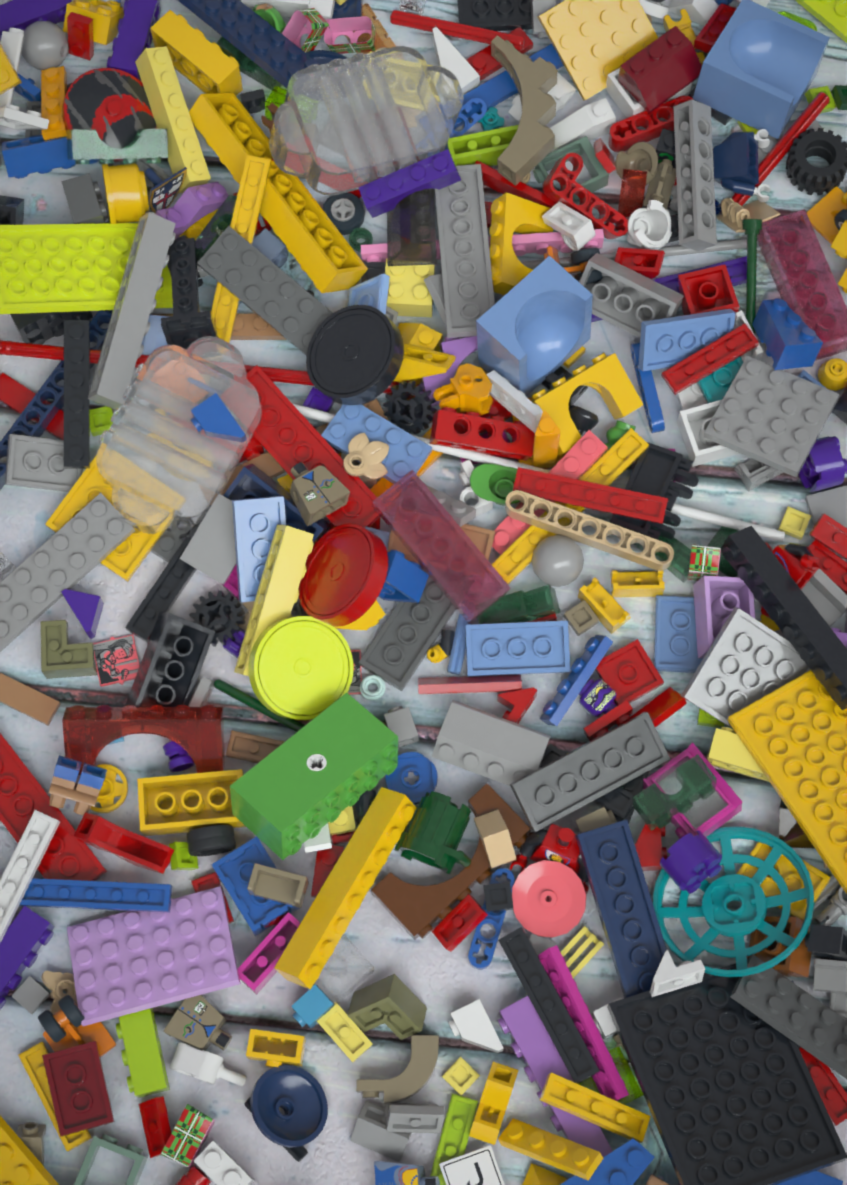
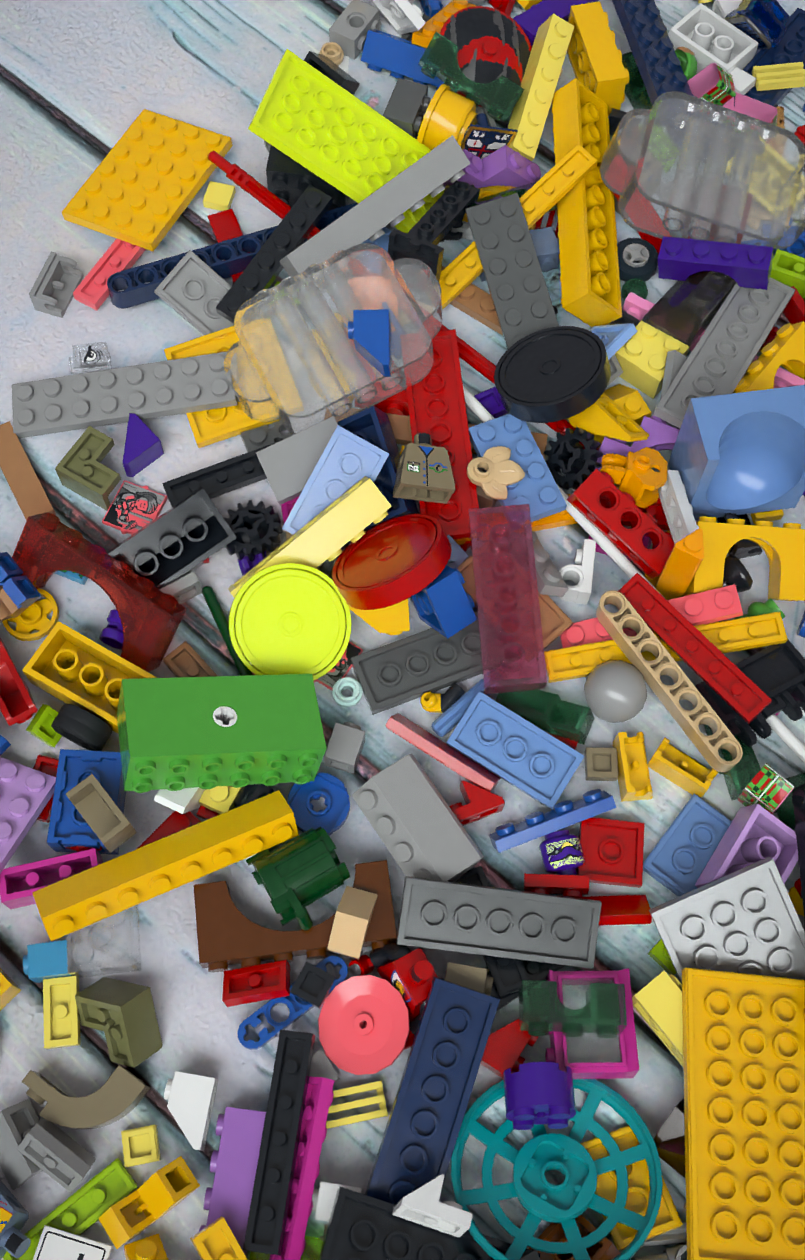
camera: 30 degrees right, 5 degrees down
(493, 482) = (602, 573): bright green piece -> none

